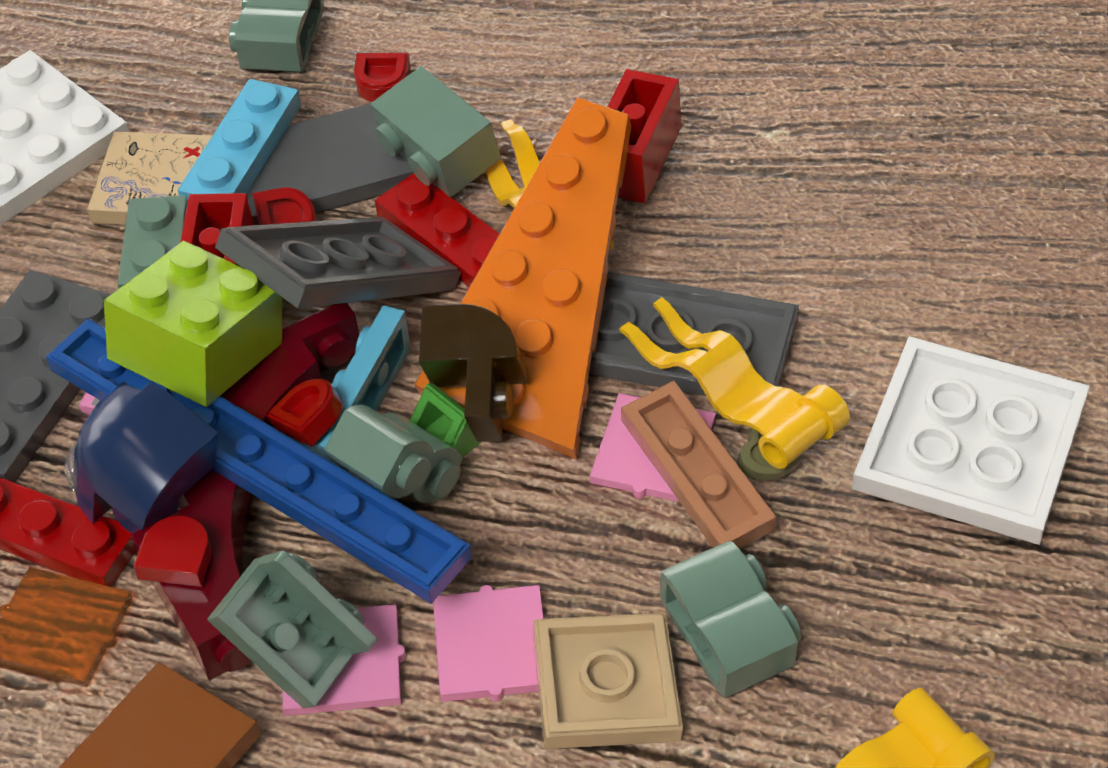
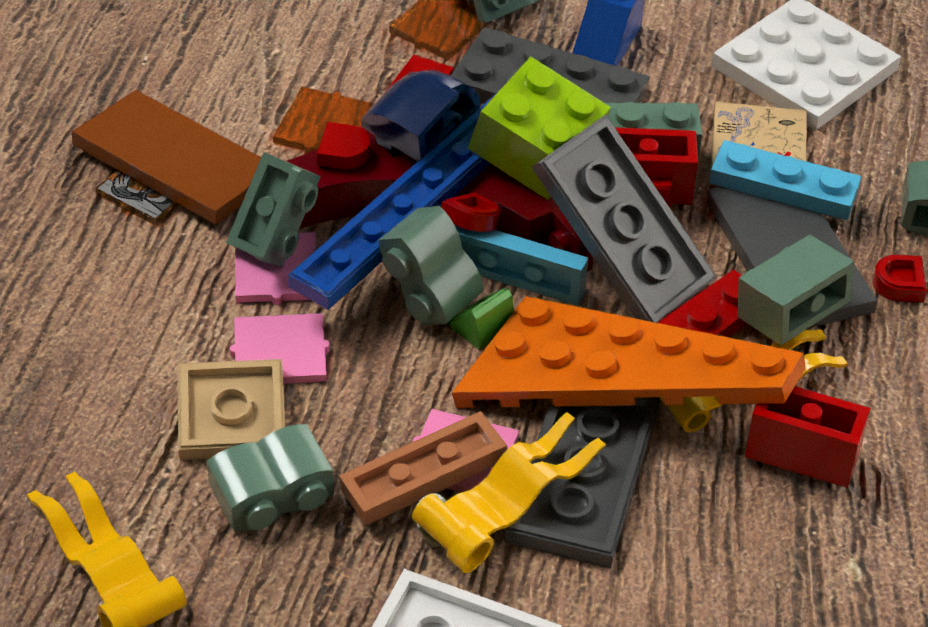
camera: 85 degrees right, 5 degrees down
(282, 206) = (711, 212): red tile -> none
(476, 351) = (520, 312): dark brown brick -> none

